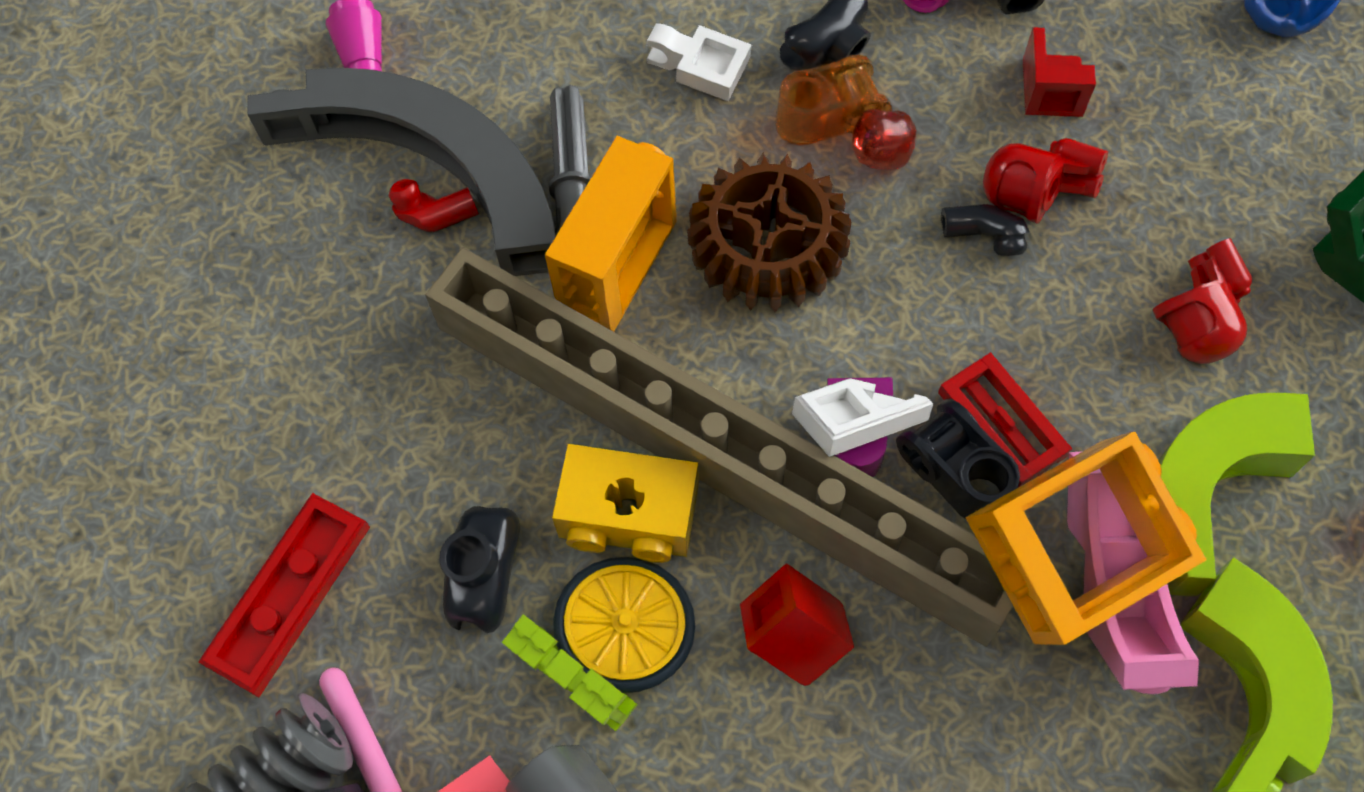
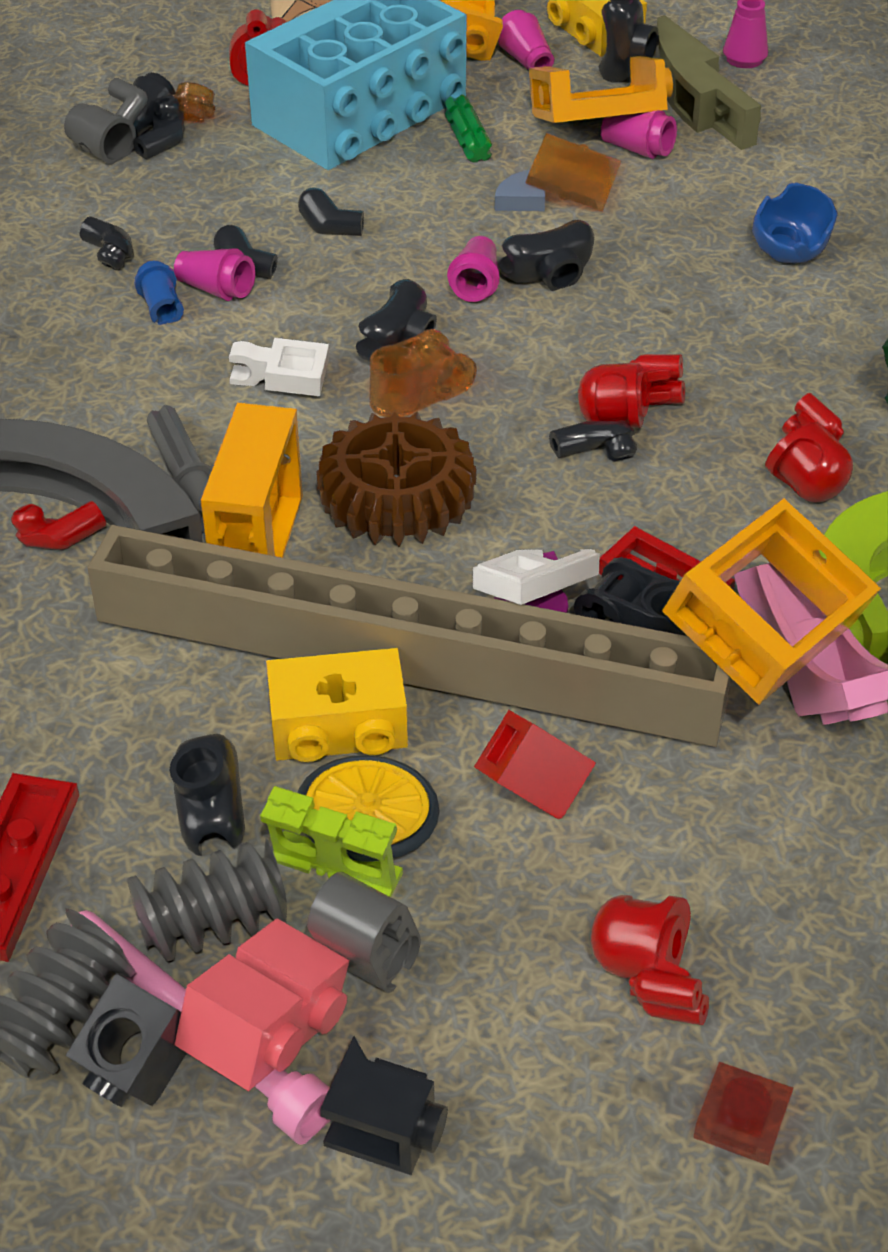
camera: 20 degrees left, 20 degrees down
(441, 705) = (209, 900): none -> dark grey piece
(884, 139) = (478, 390): clear red piece -> none
(1055, 82) = (616, 325): red panel -> none

